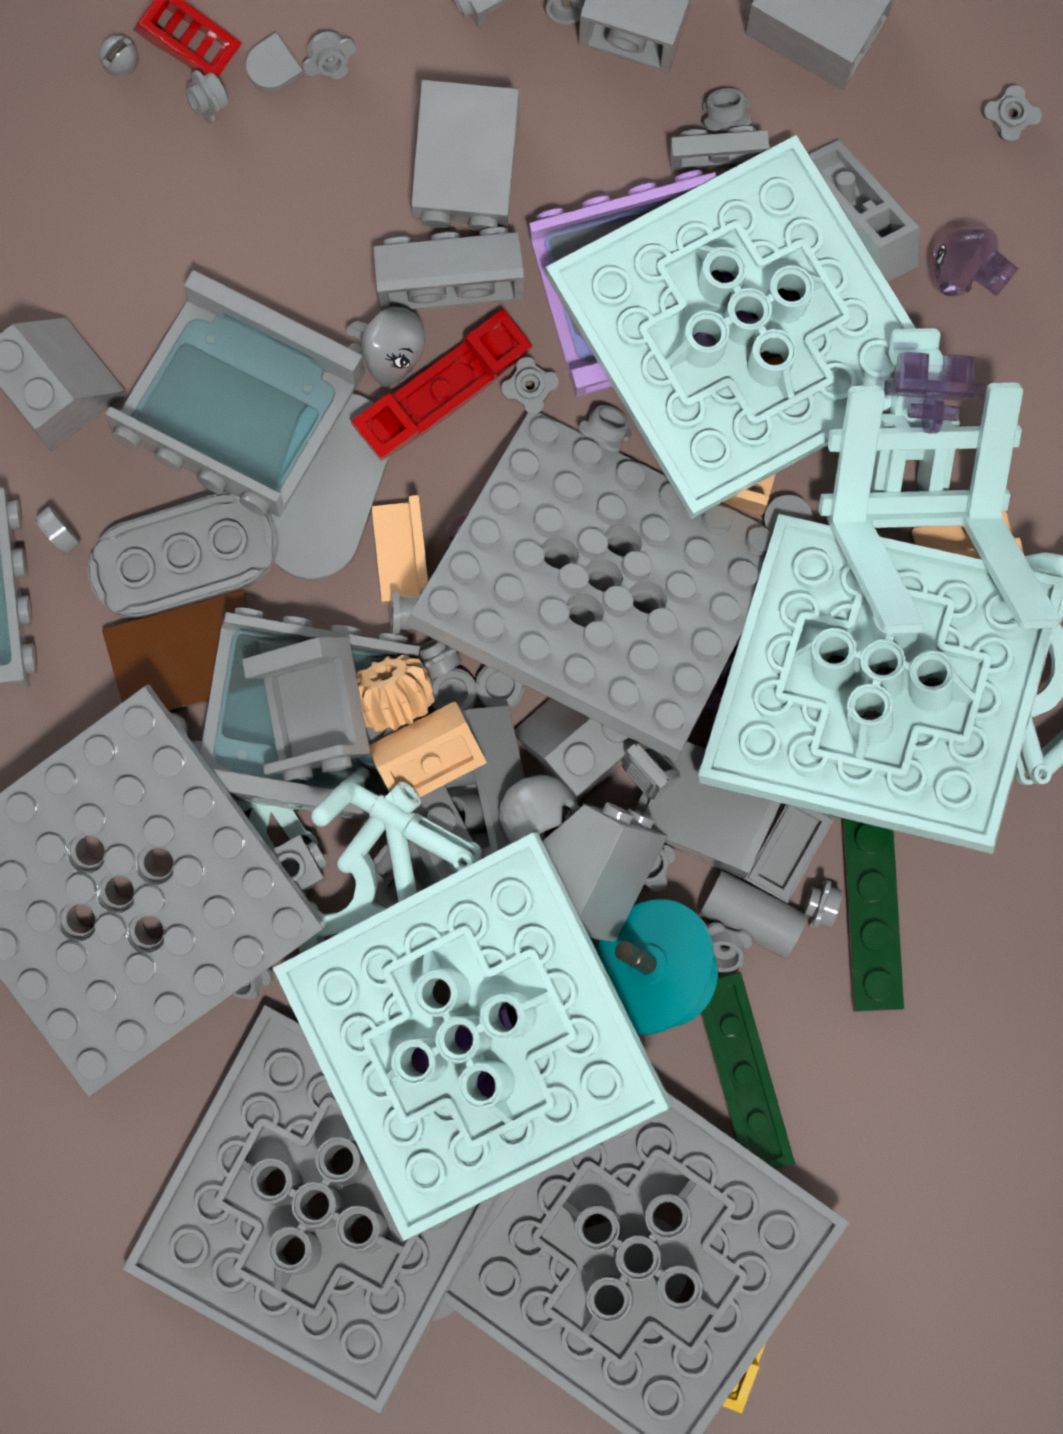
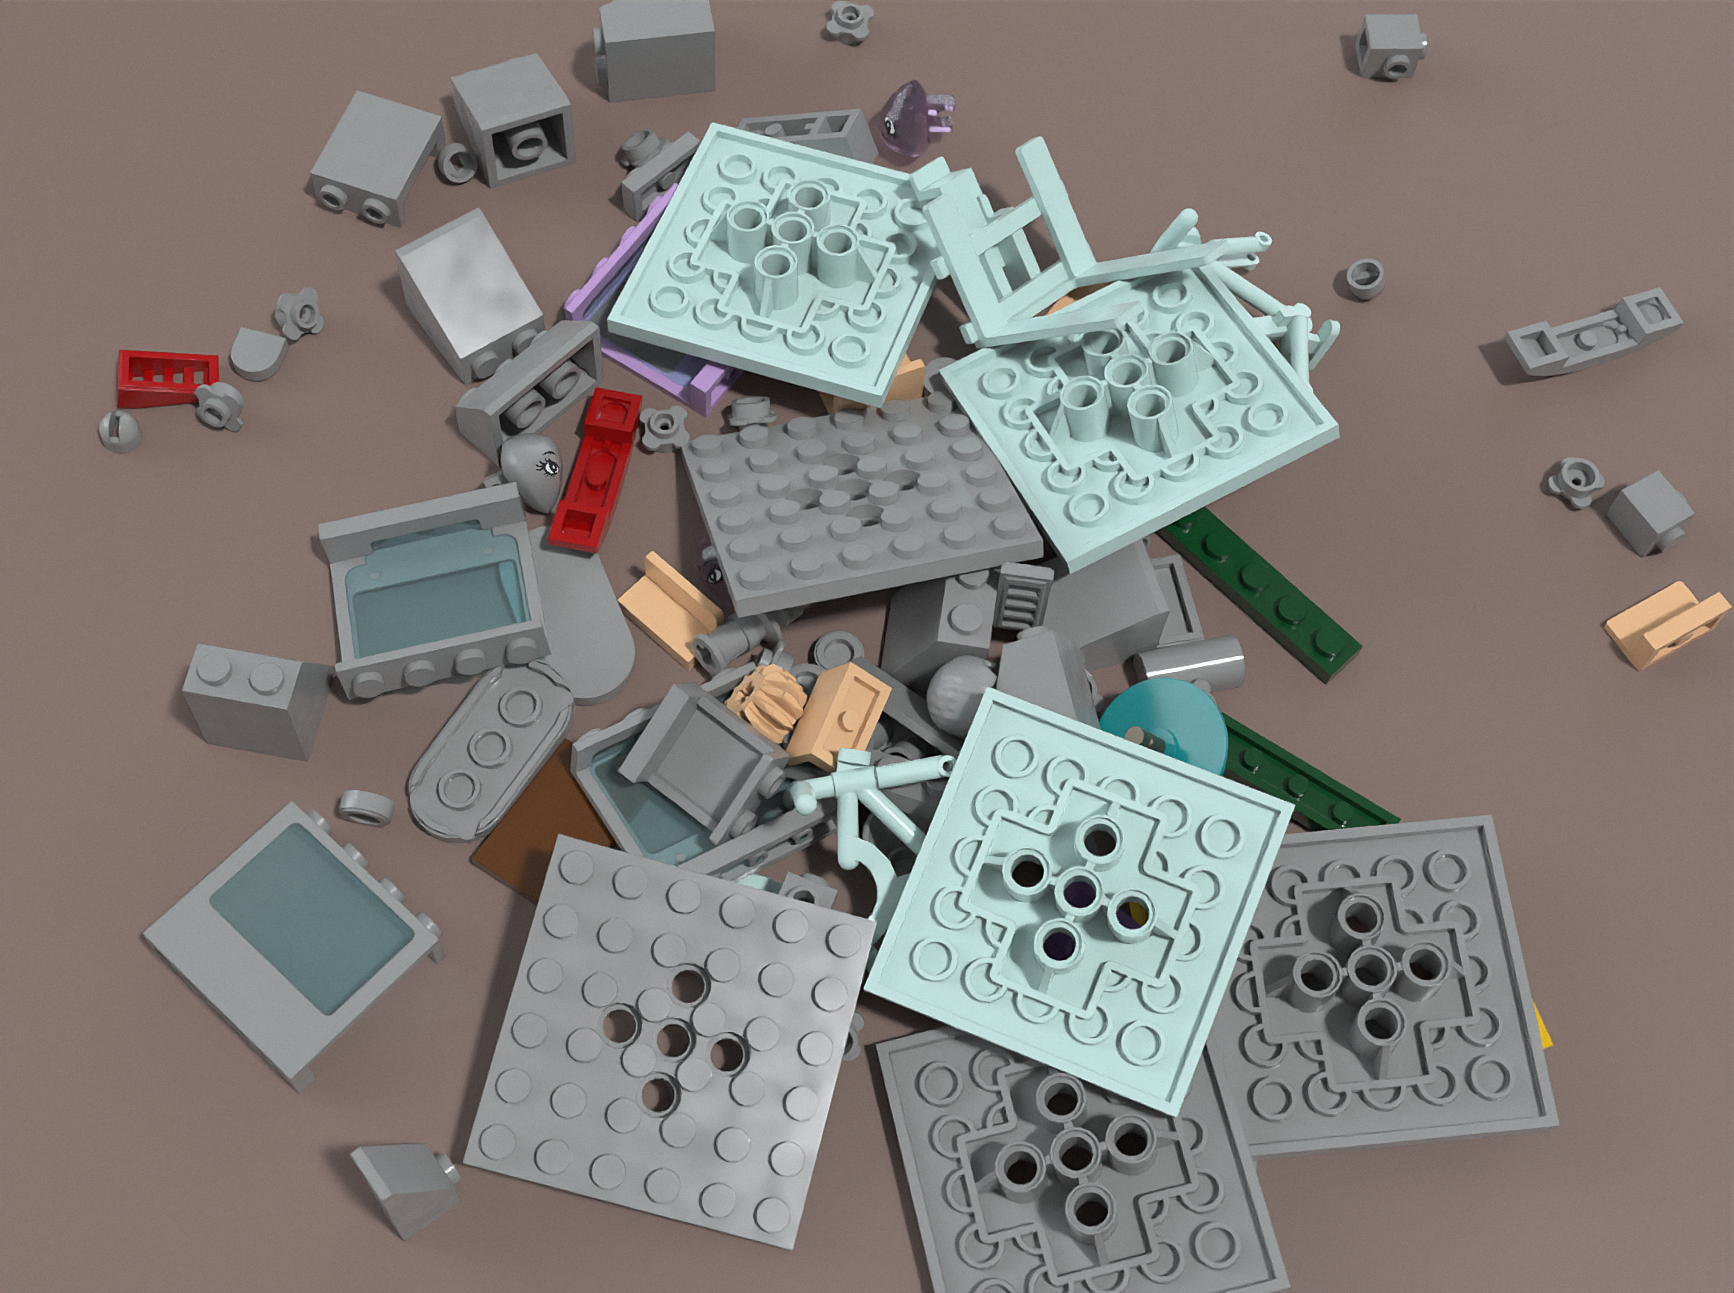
camera: 45 degrees left, 20 degrees down
(823, 905) = (1233, 616): light grey plate -> none
(956, 384) = (984, 186): clear purple hips -> none

